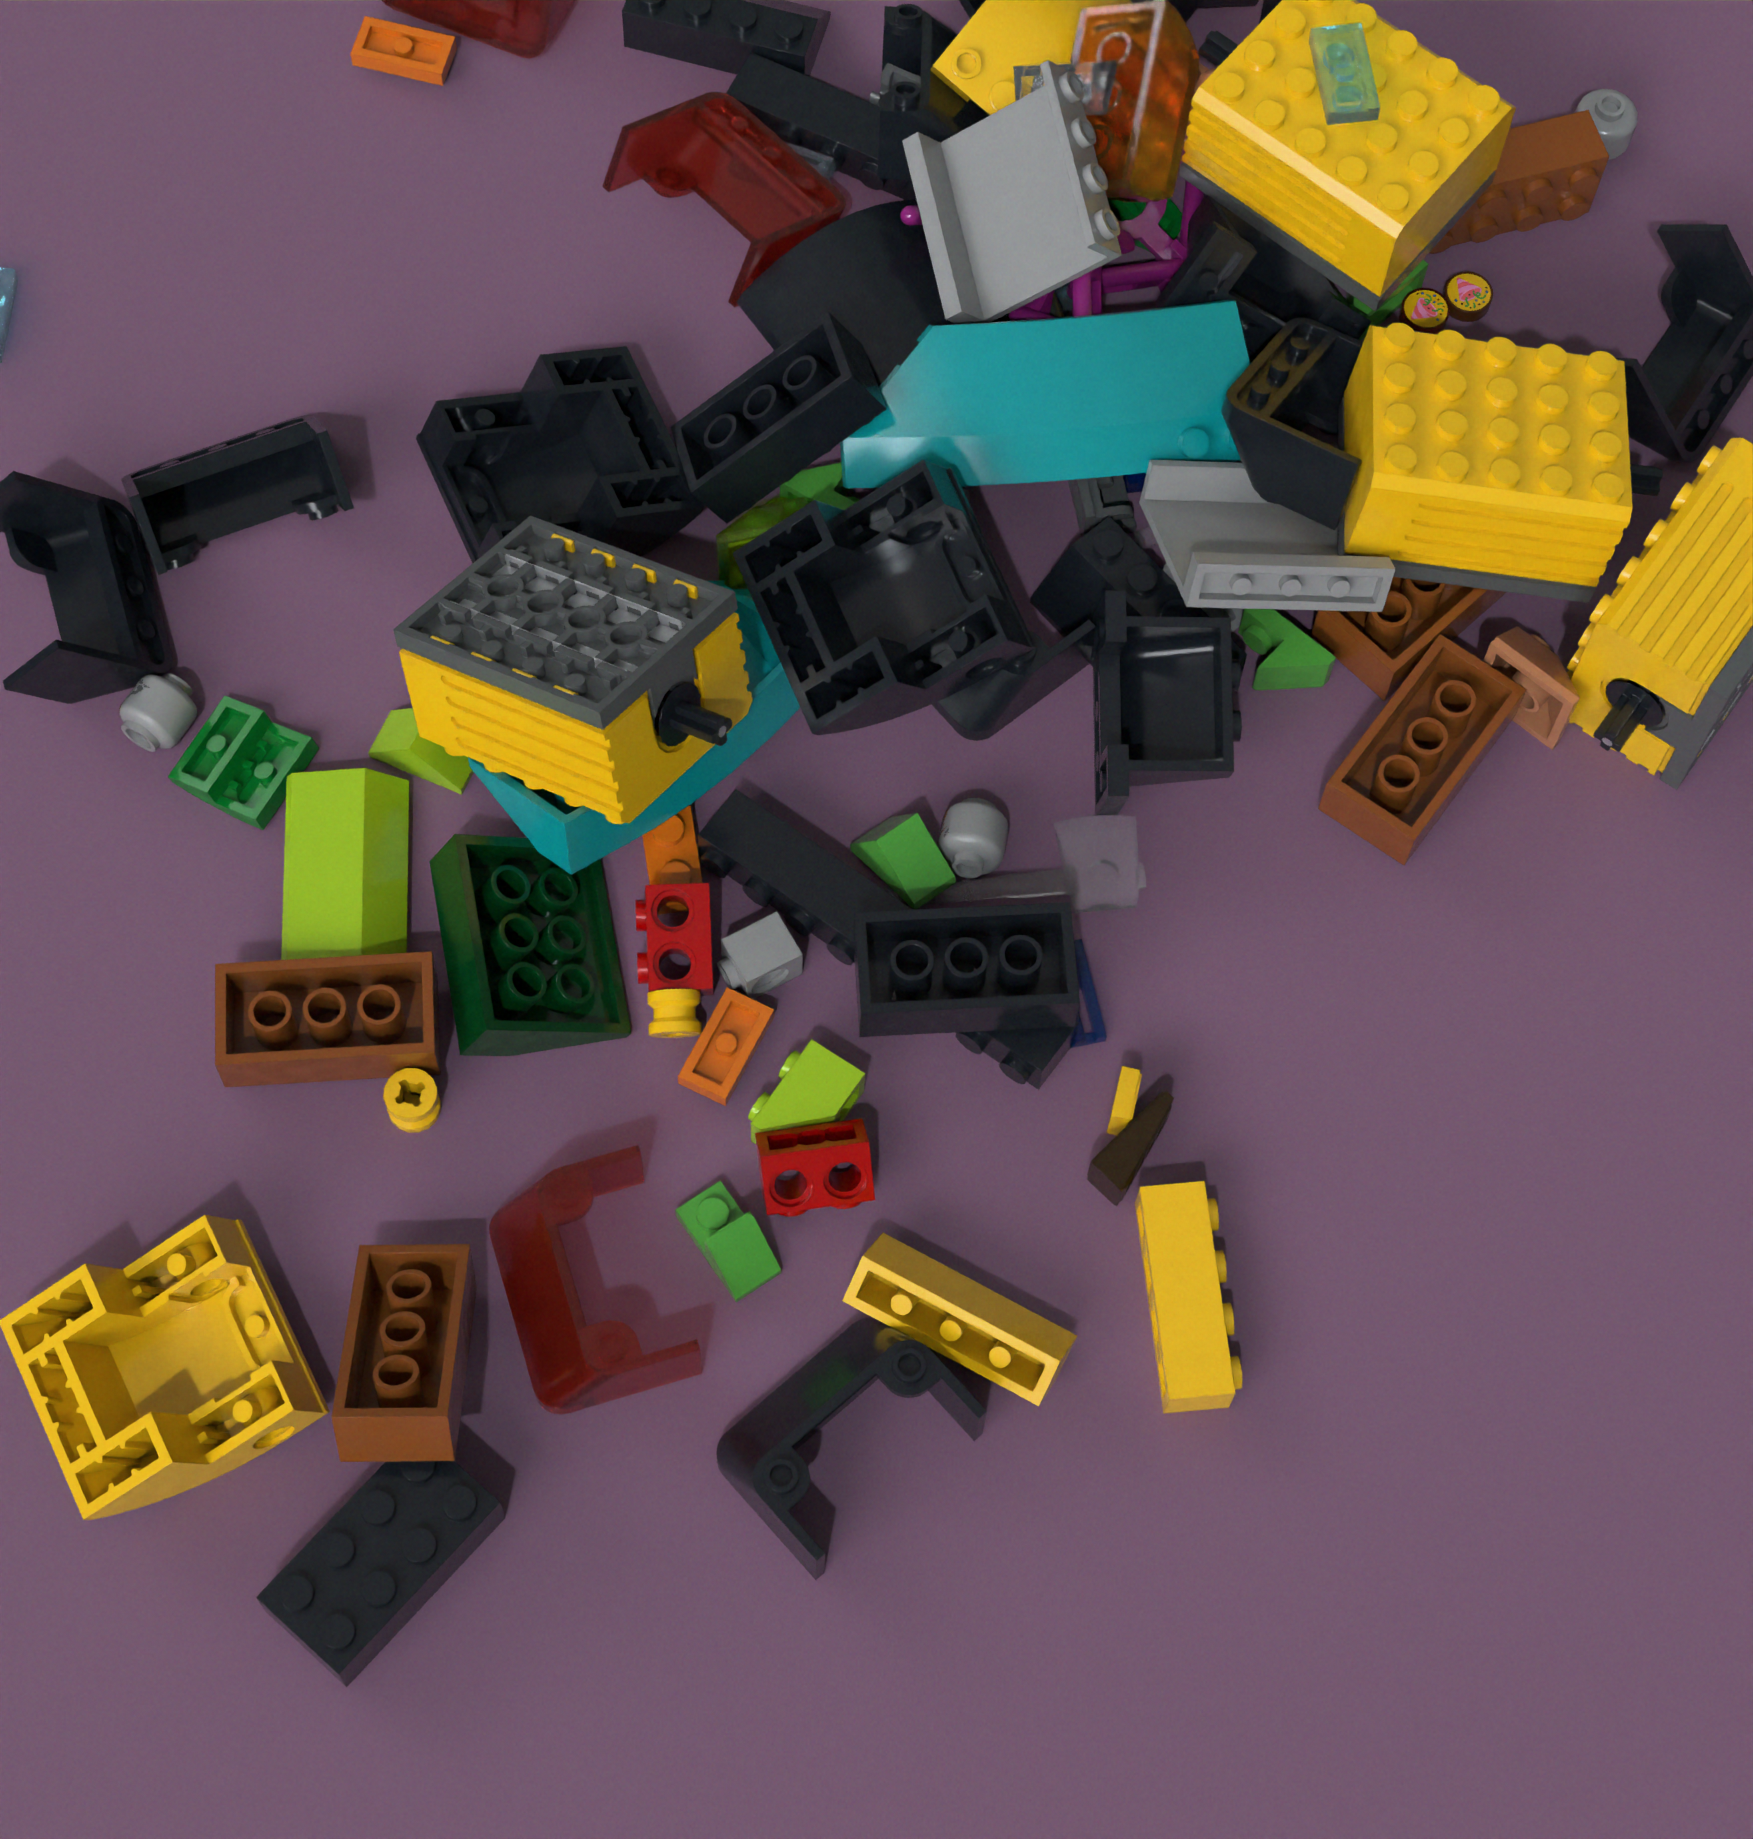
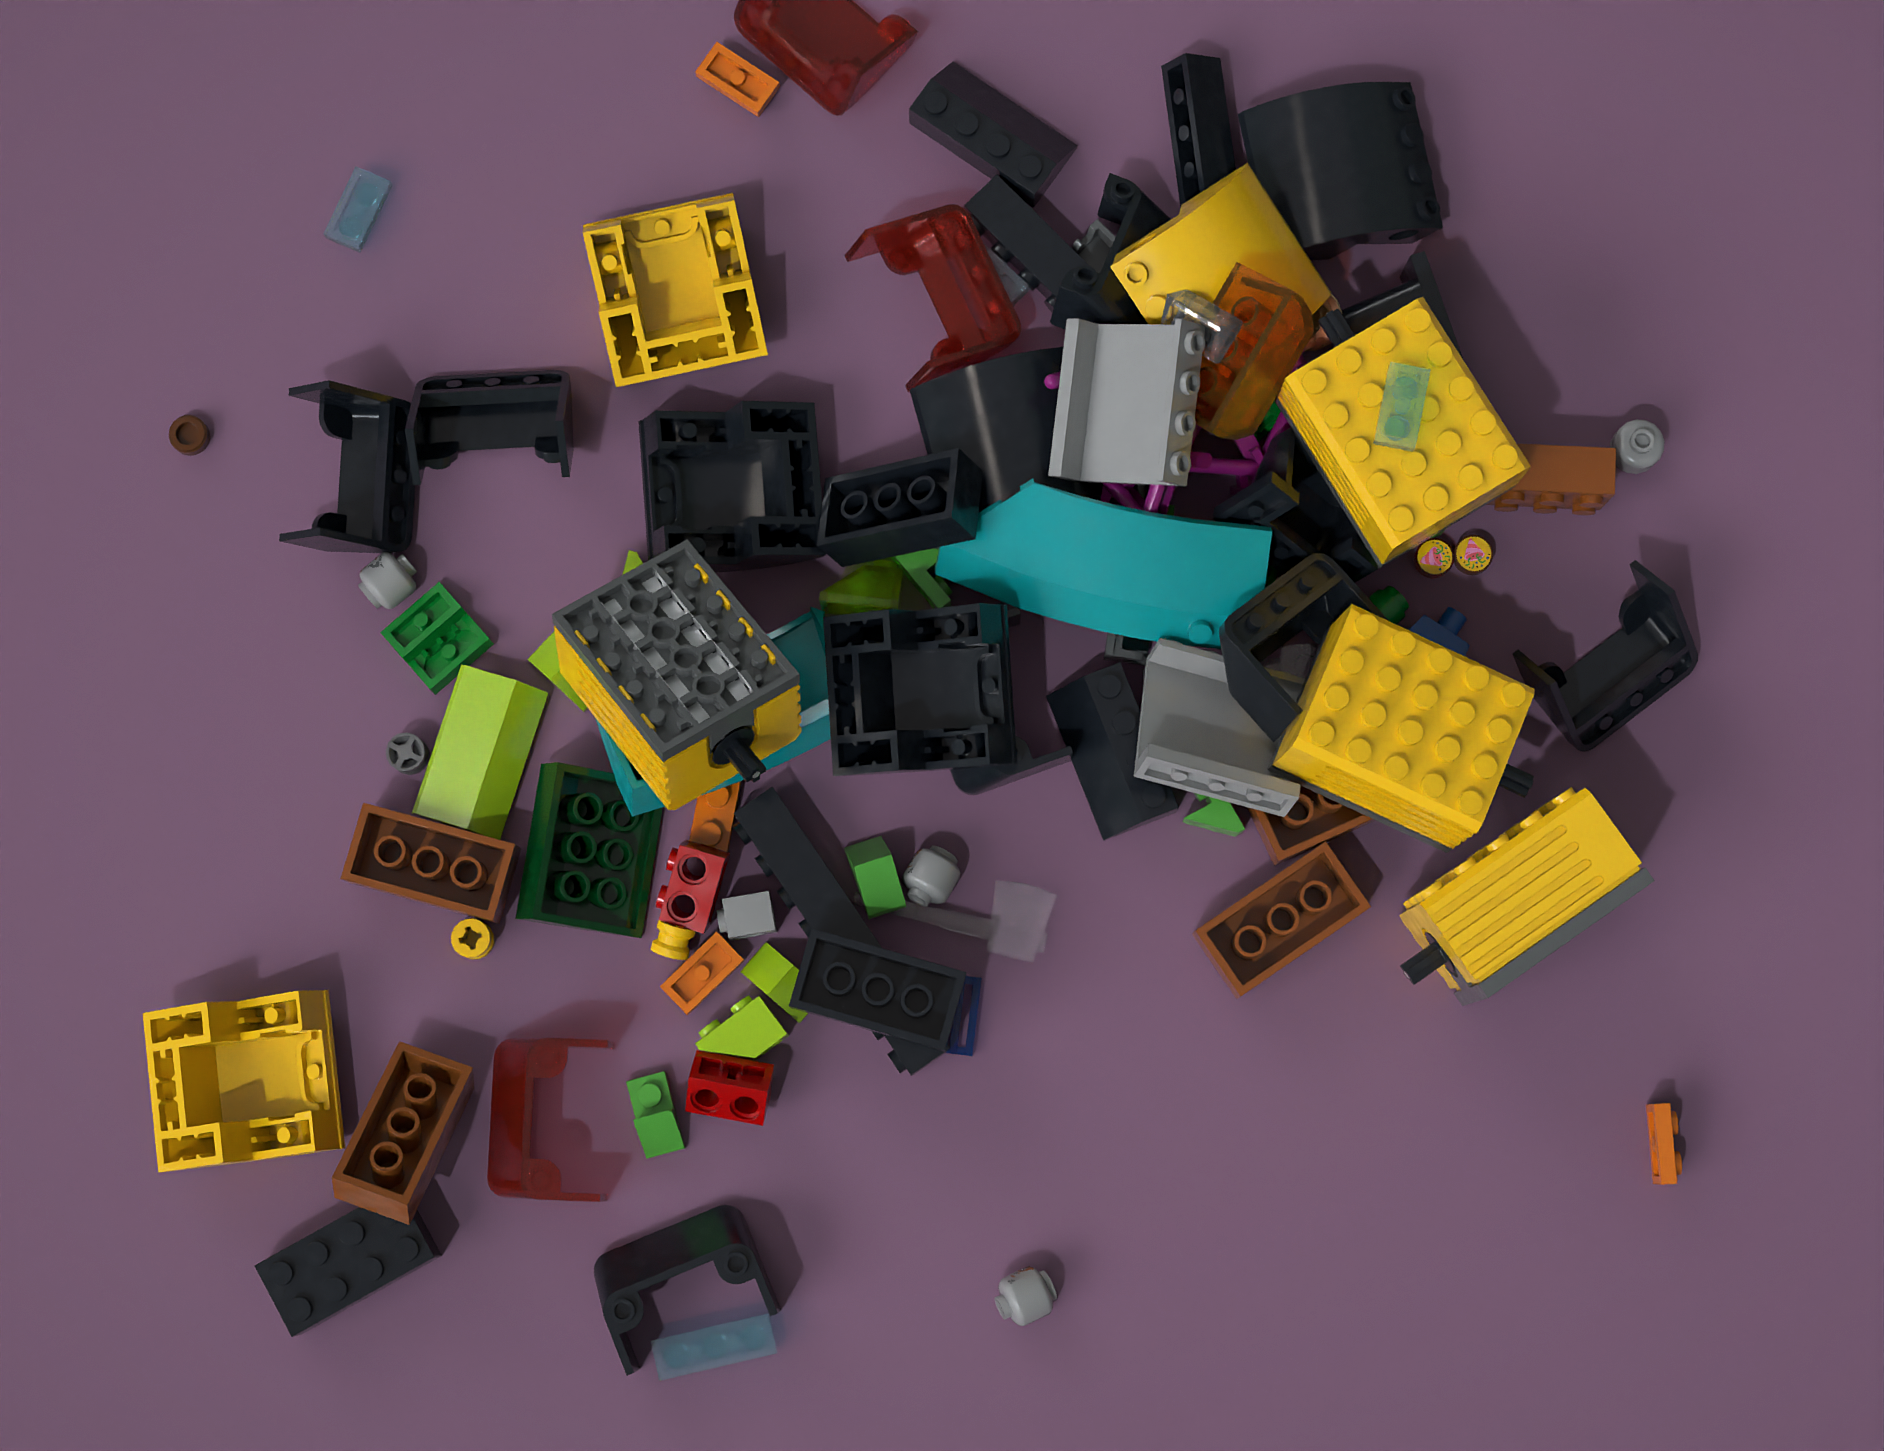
camera: 25 degrees right, 15 degrees up
(243, 896) = (401, 749): none -> flat silver wheel
(409, 279) = (674, 289): none -> yellow slope
(830, 1019) = (774, 977): none -> lime slope
(913, 1504) = (714, 1346): none -> clear light blue plate
(959, 1318) = (789, 1232): yellow brick -> none
(1122, 1158) = (946, 1154): dark brown slope -> none
(1124, 1100) = (964, 1111): yellow tile -> none
(1160, 700) = (1098, 831): black windscreen -> none
(1186, 1298) = (952, 1268): yellow brick -> none
(1293, 1299) = (1025, 1296): none -> light grey head
(1549, 691) = (1386, 890): nougat slope -> none

